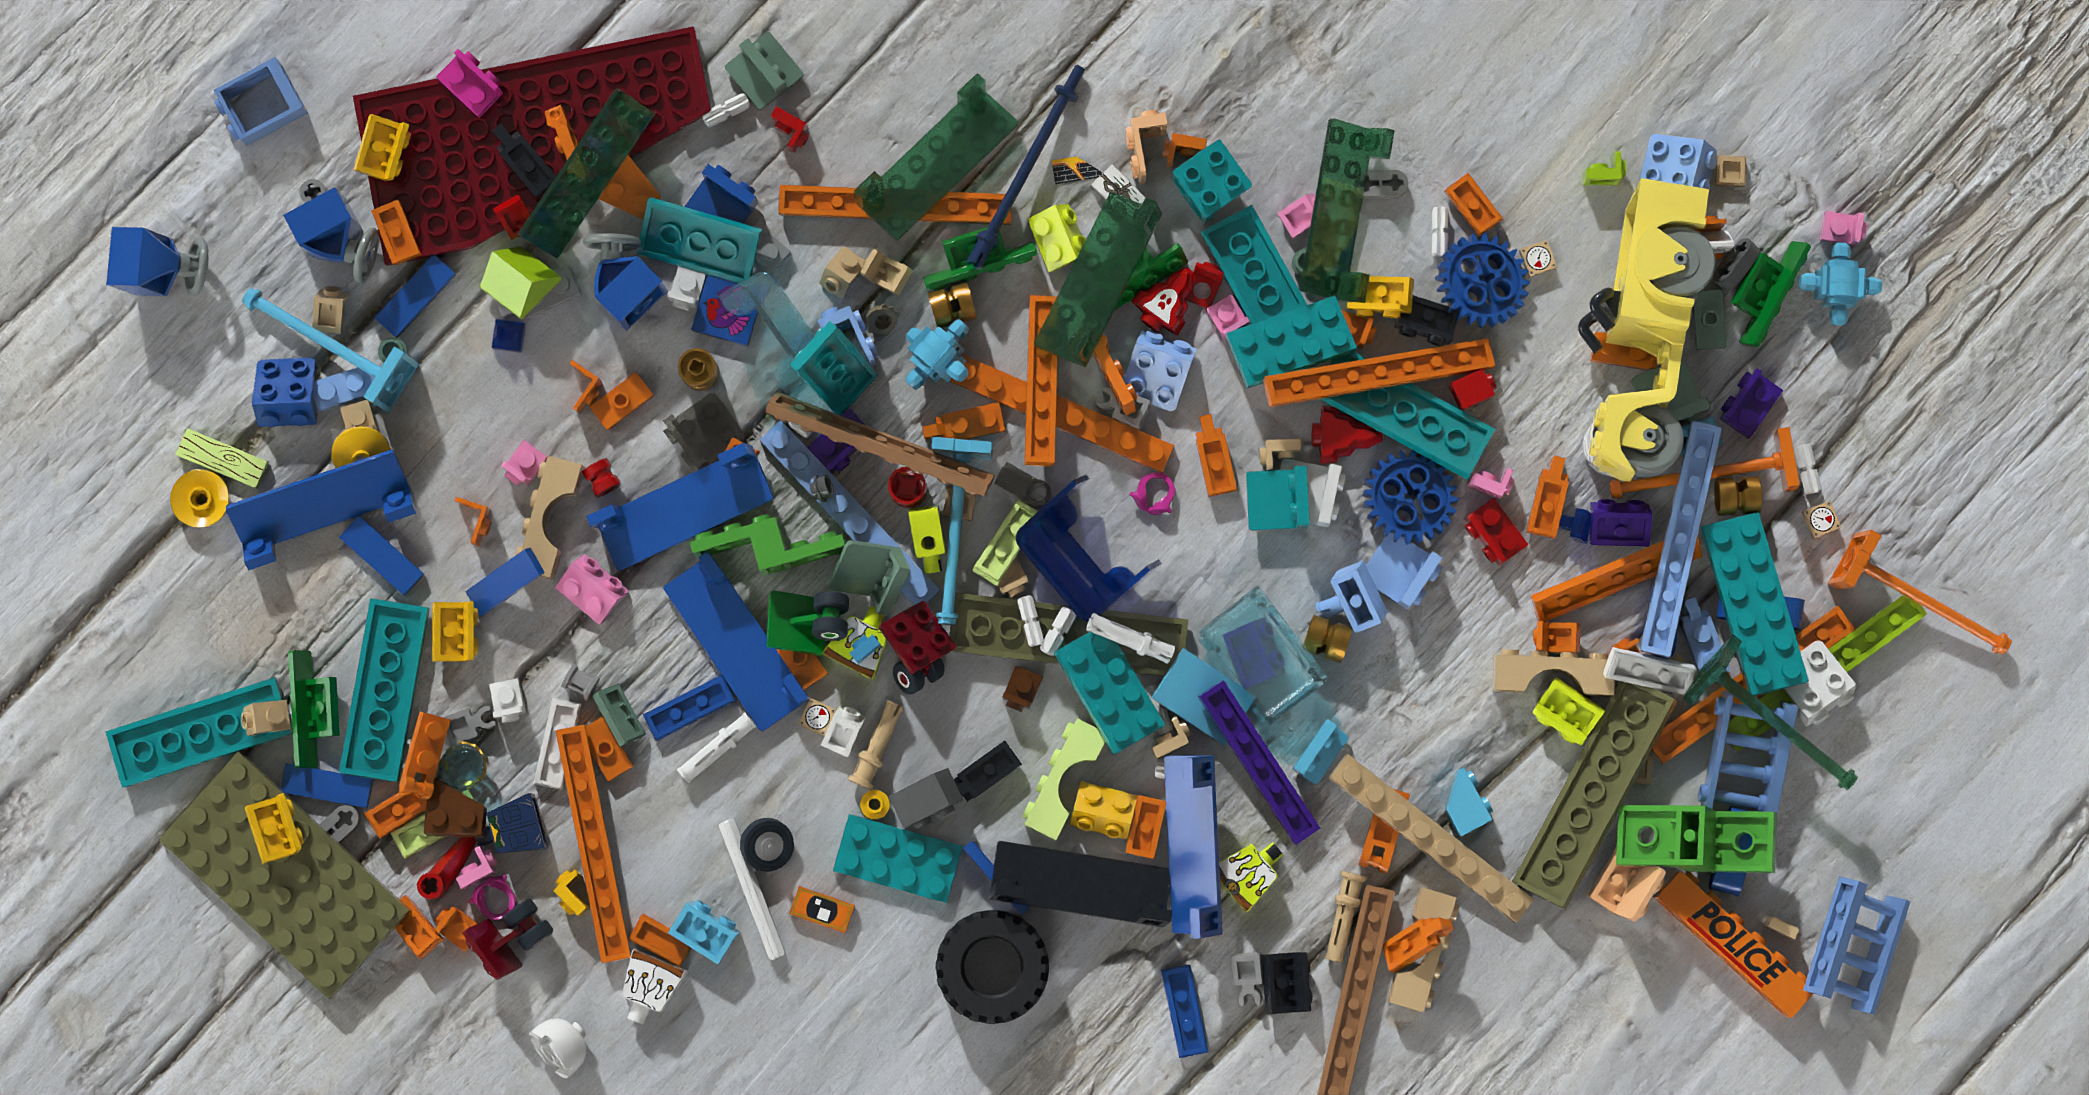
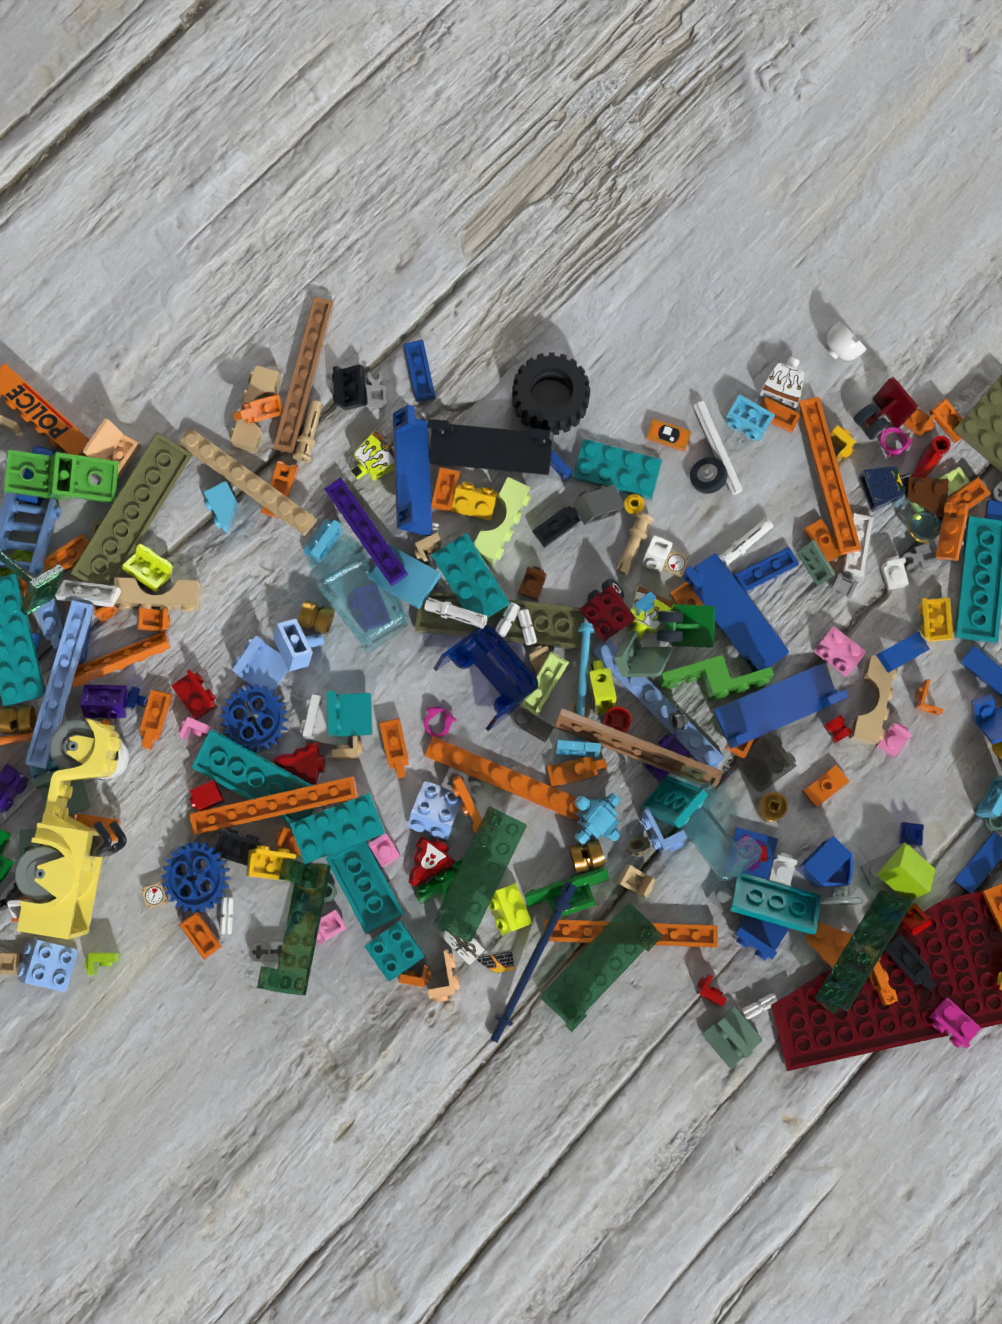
camera: 175 degrees right, 5 degrees down
(473, 873) = (907, 457): bright pink bracket -> none
(591, 393) = (848, 790): orange bracket -> none
(841, 272) = (668, 882): tan bracket -> none
(1040, 390) = (521, 793): orange plate -> none
(1208, 274) = (396, 880): red bracket -> none

